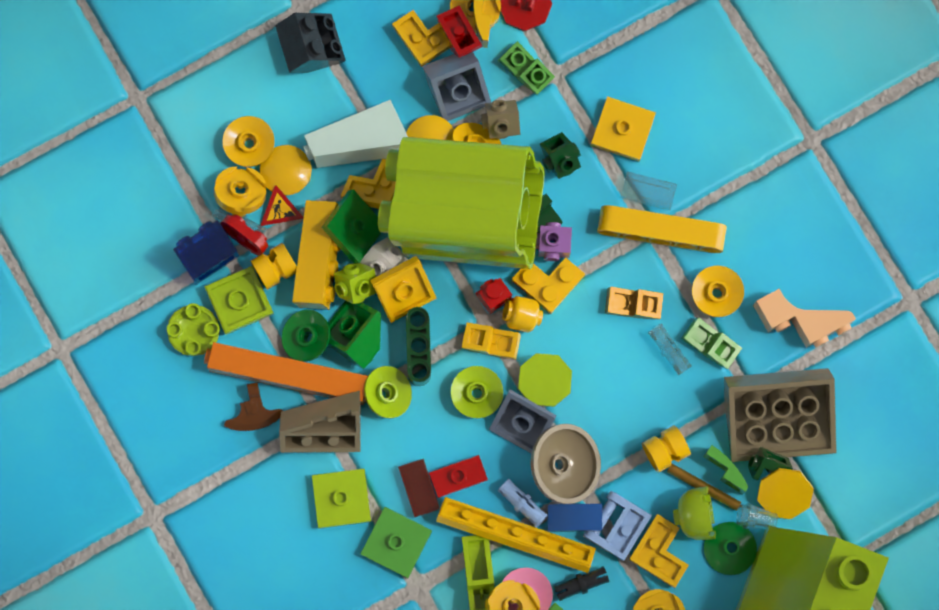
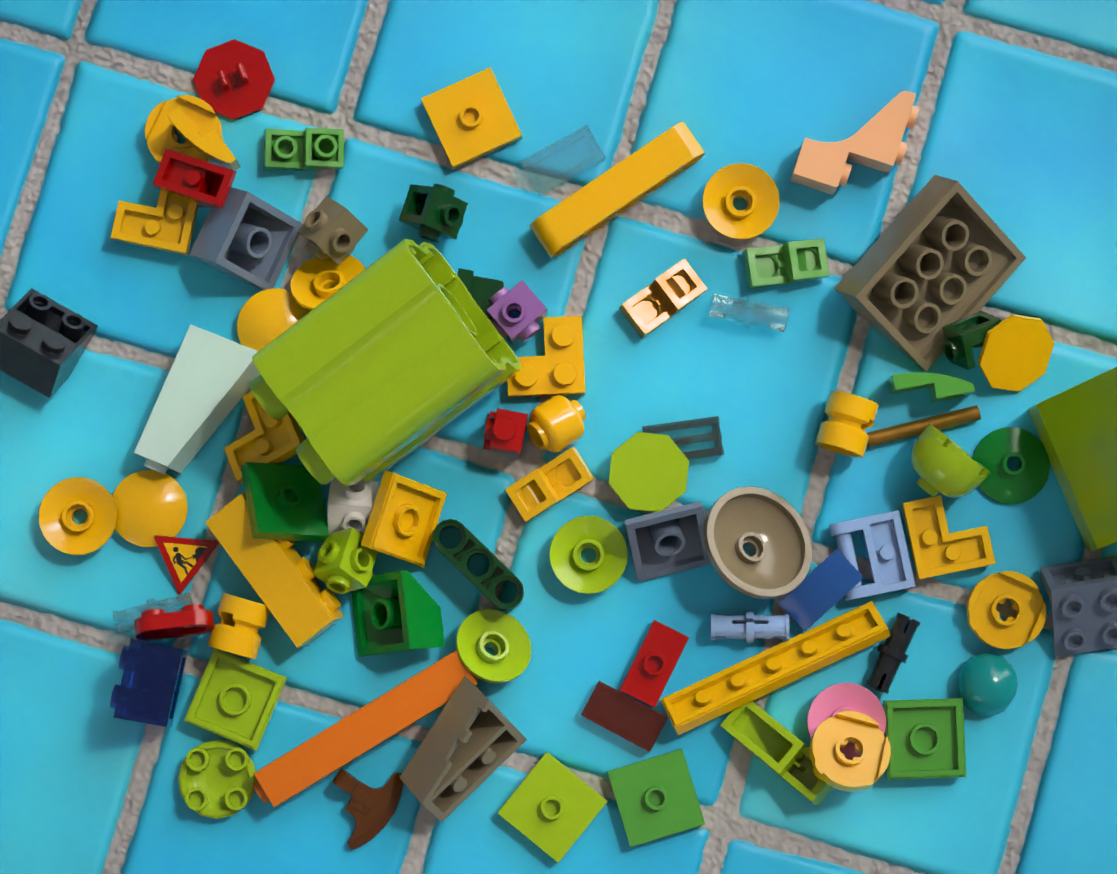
camera: 40 degrees left, 5 degrees up
(240, 203) = (134, 595): yellow plate -> none
(296, 335) = (334, 678): green dish -> none
(595, 394) = (693, 424): none -> clear smoke tile
(754, 517) = (1006, 409): clear light blue cone -> none

